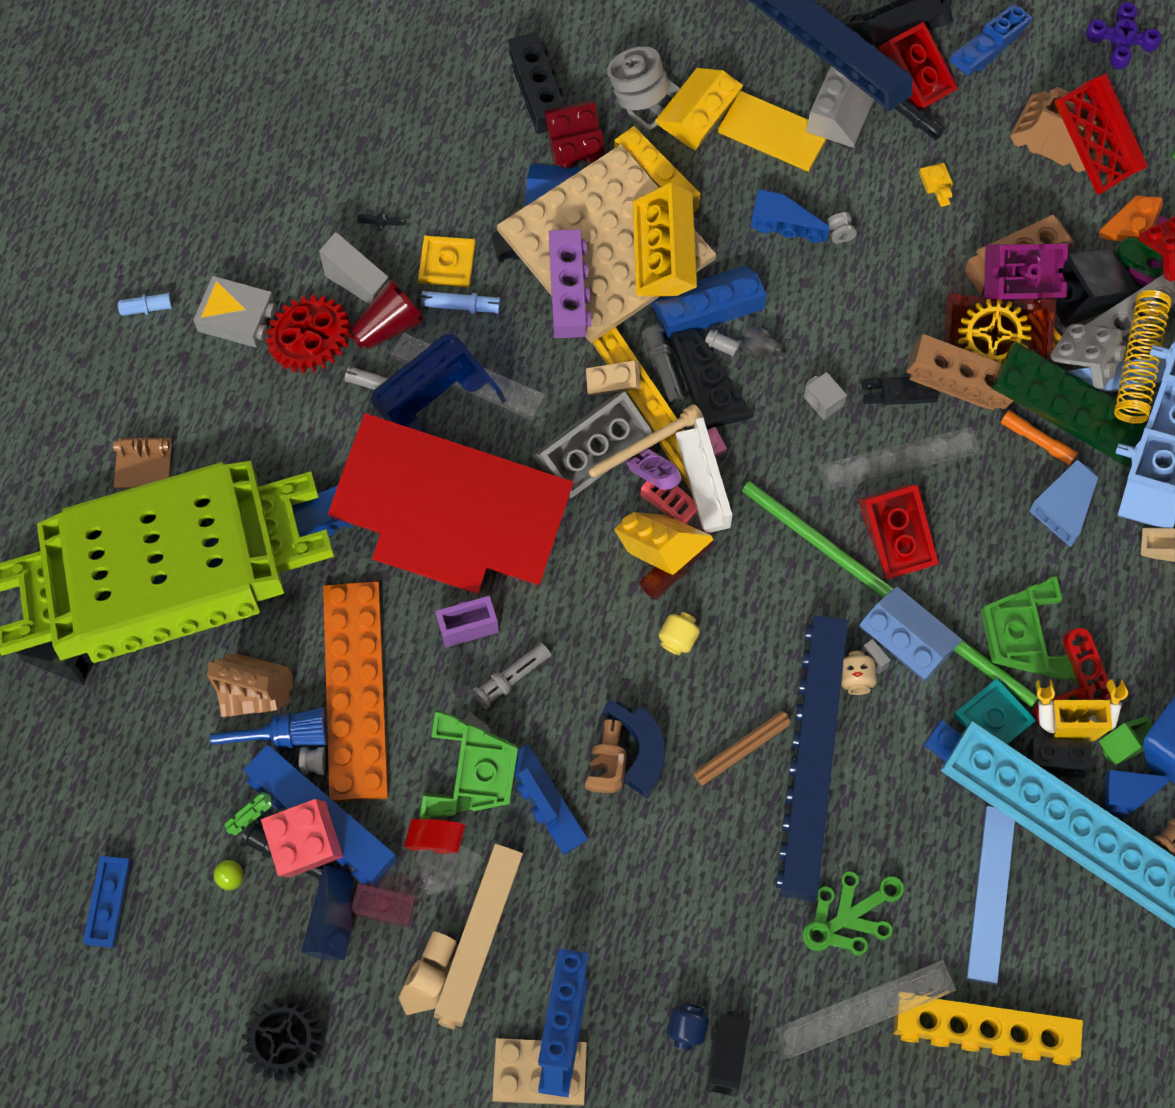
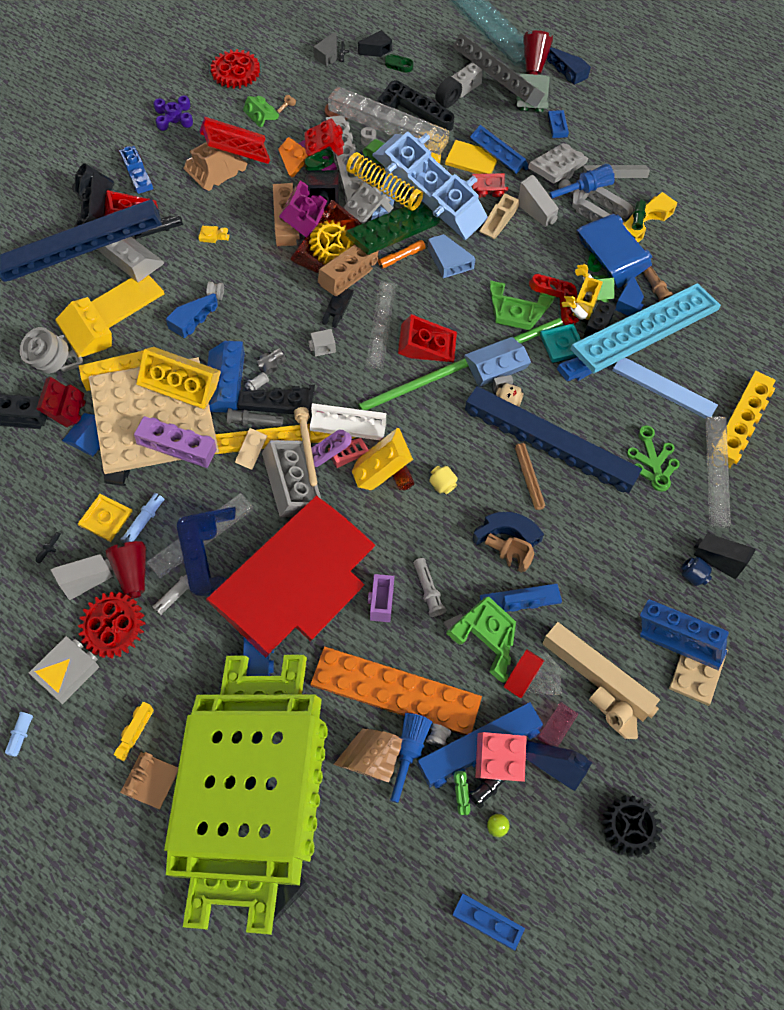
camera: 70 degrees left, 5 degrees down
(191, 417) = (132, 732): none -> yellow plate

